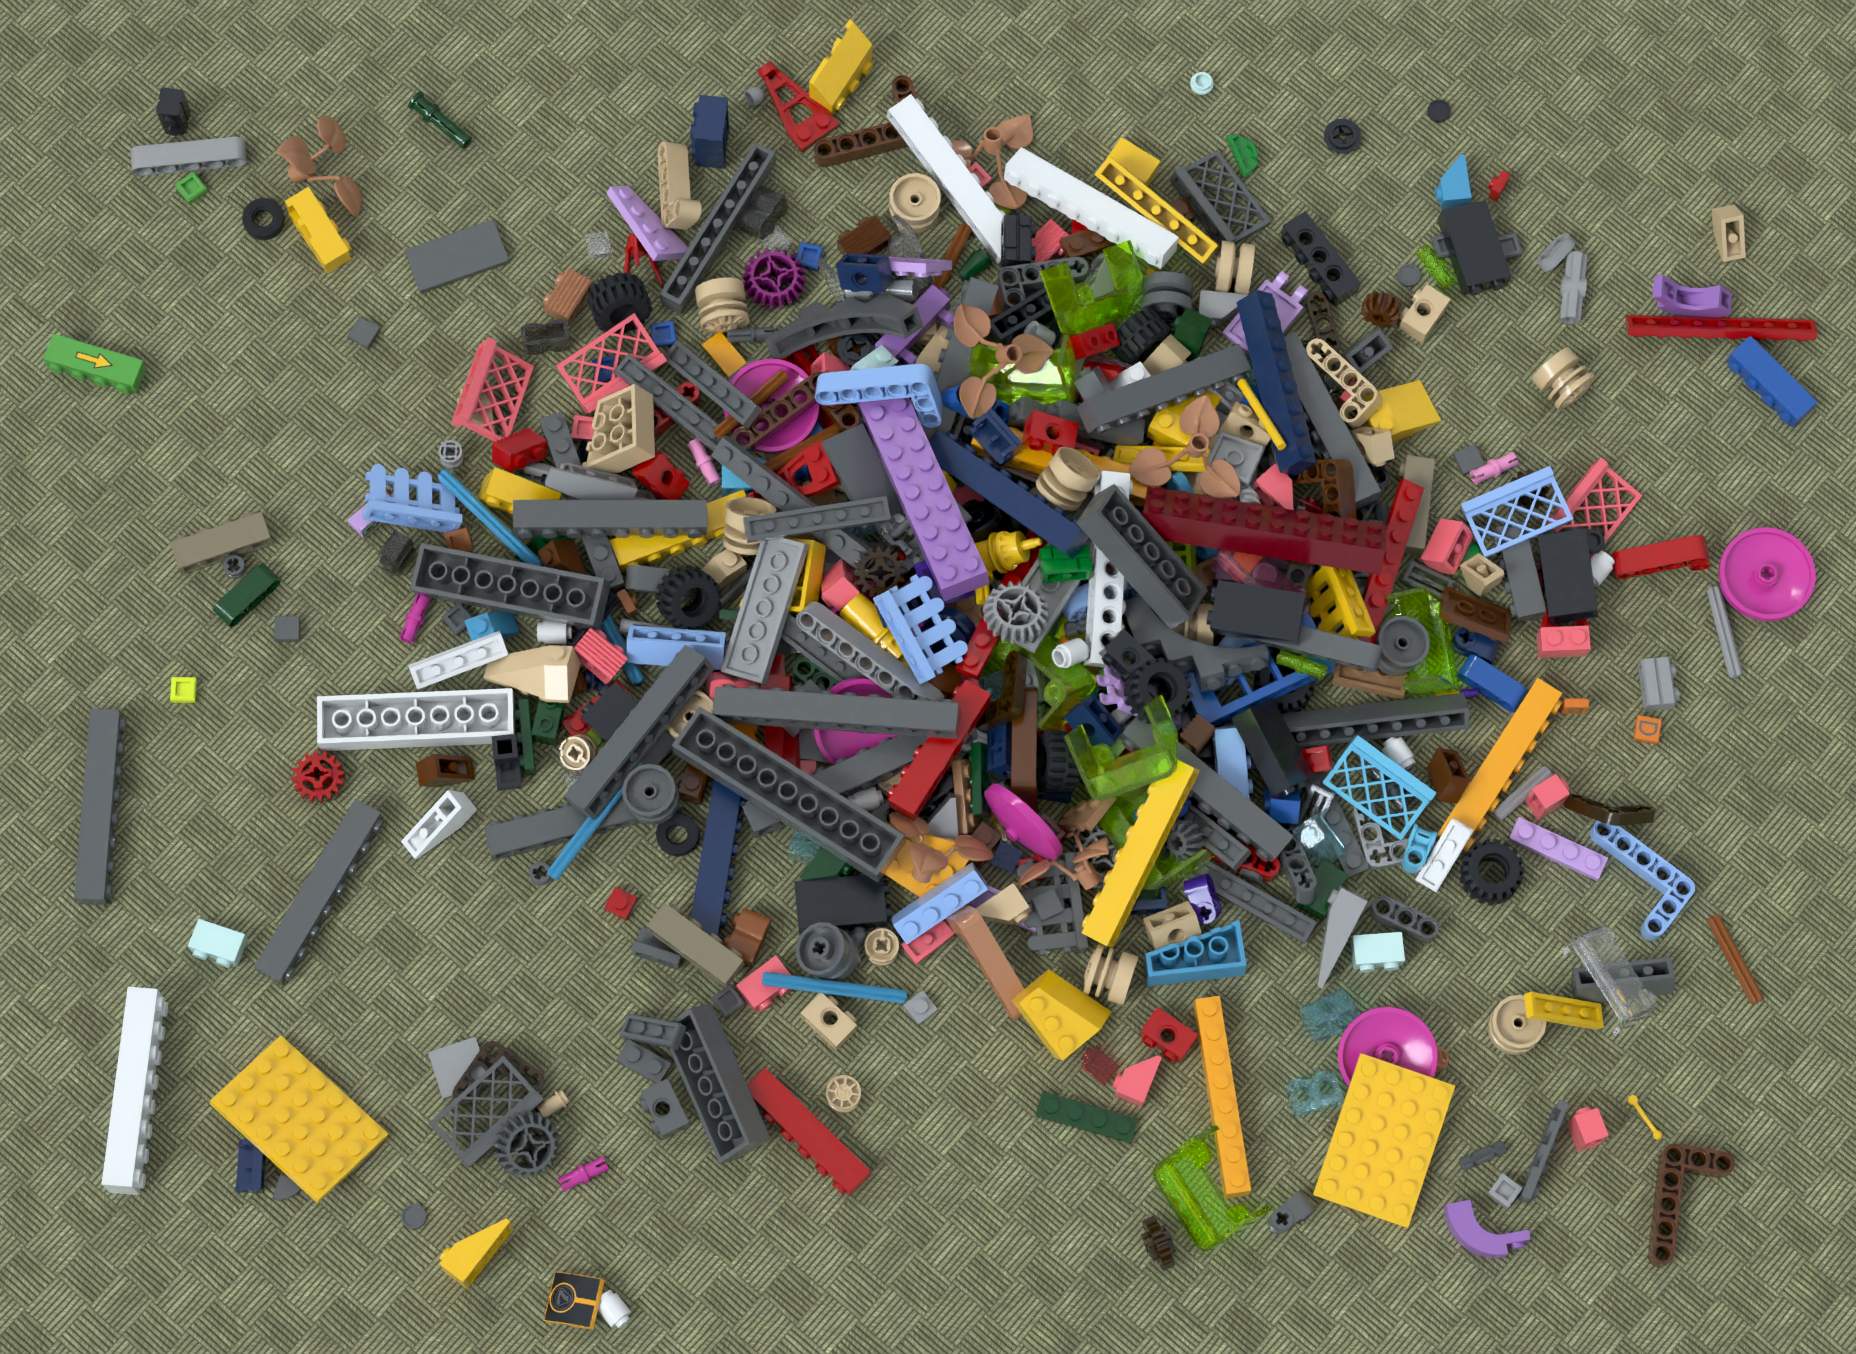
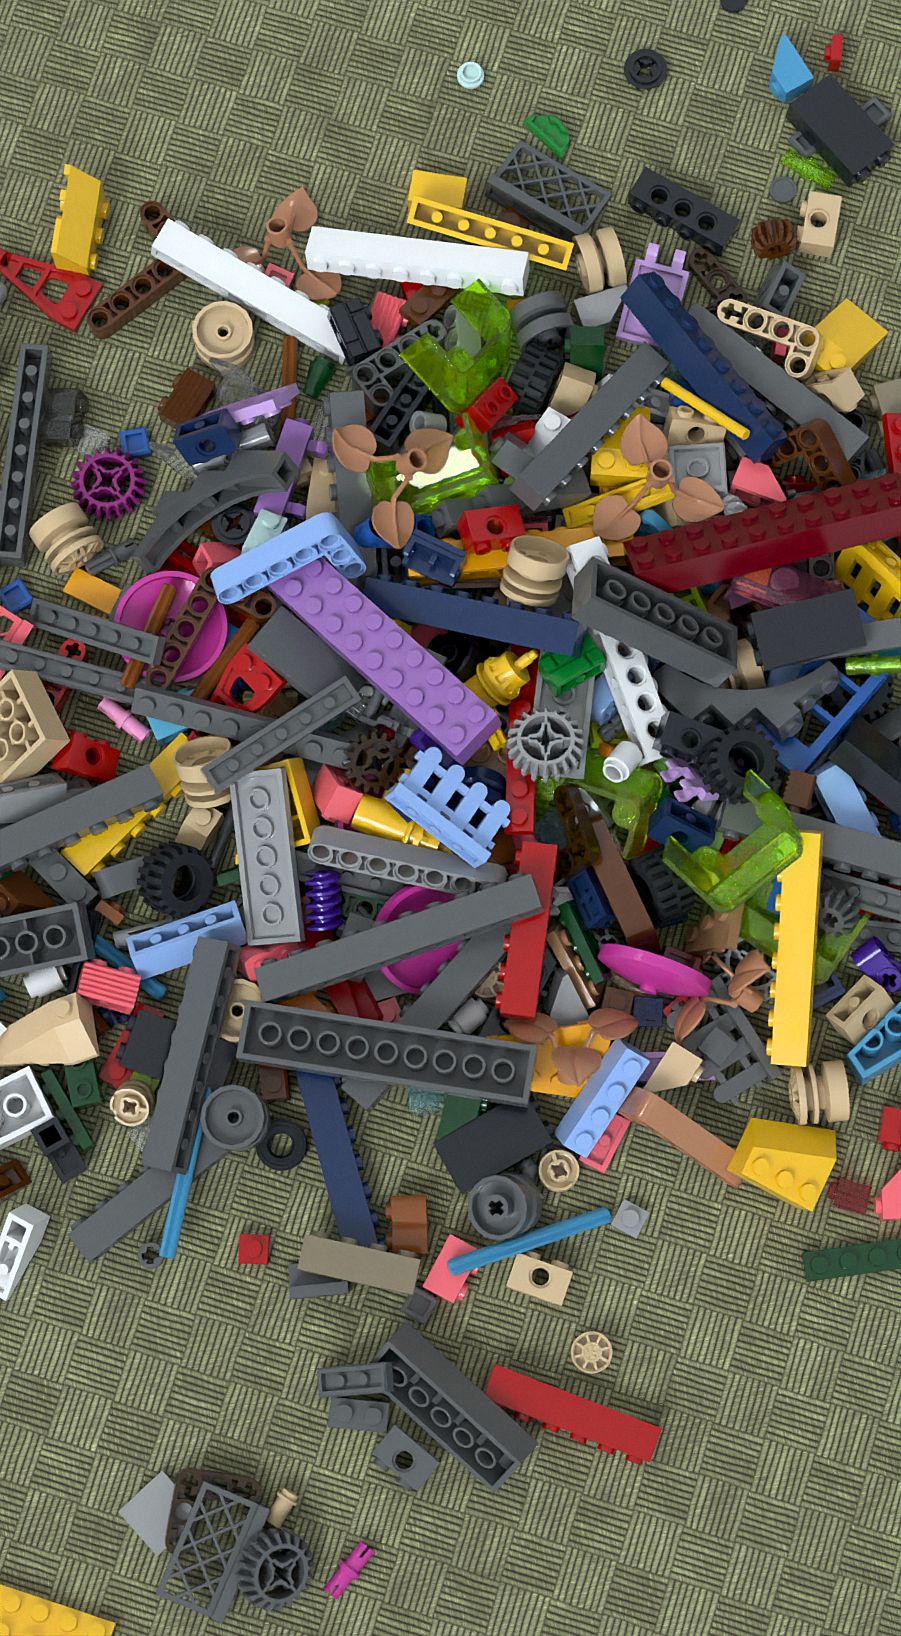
camera: 20 degrees left, 5 degrees up
(794, 660) = (325, 899): none -> dark purple piece

